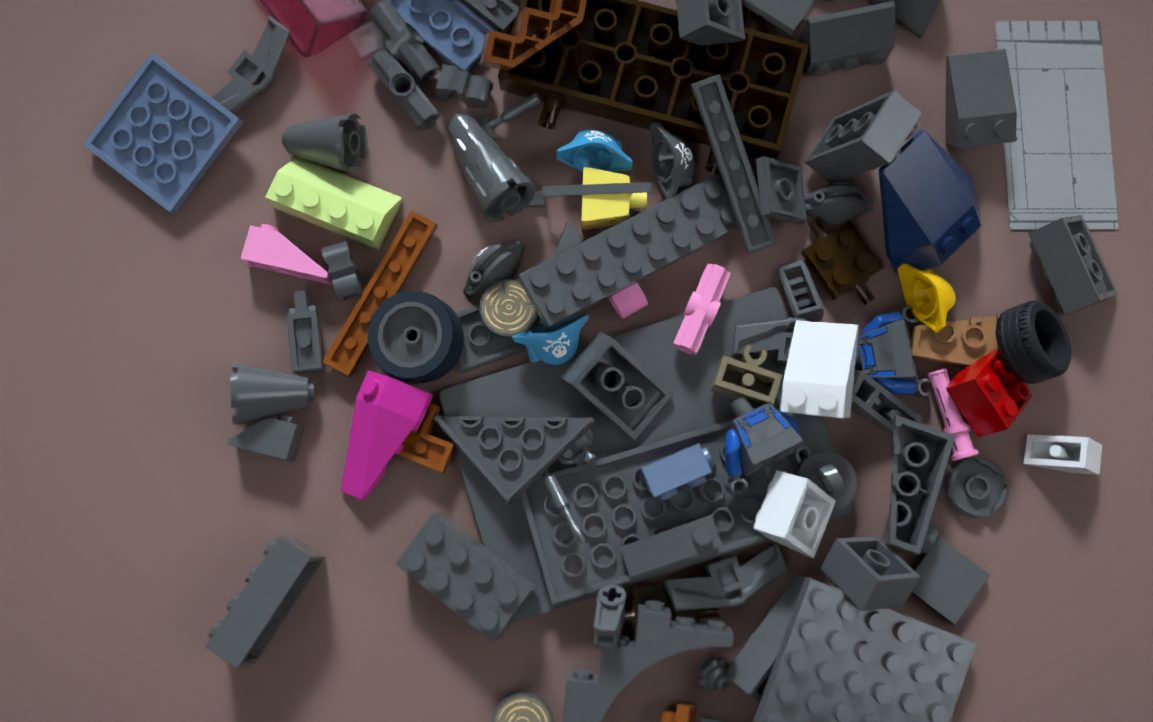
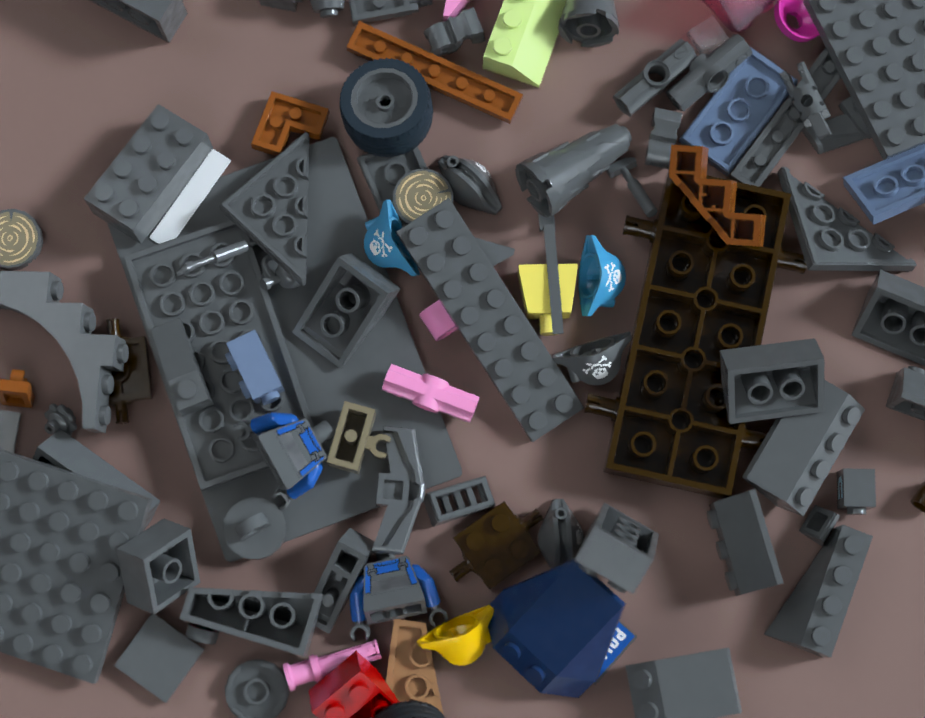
camera: 85 degrees right, 0 degrees up
(380, 423) = (301, 82): dark pink wedge -> none
(493, 537) = (190, 197): none -> white sticker
(609, 616) = (110, 309): dark grey piece -> none
(727, 582) = (150, 430): dark grey plate -> none
(733, 163) = (588, 417): dark grey tile -> none
(781, 190) = (566, 474): dark grey tile -> none
(794, 513) = (215, 489): white slope -> none
(820, 369) = (362, 509): white slope -> none

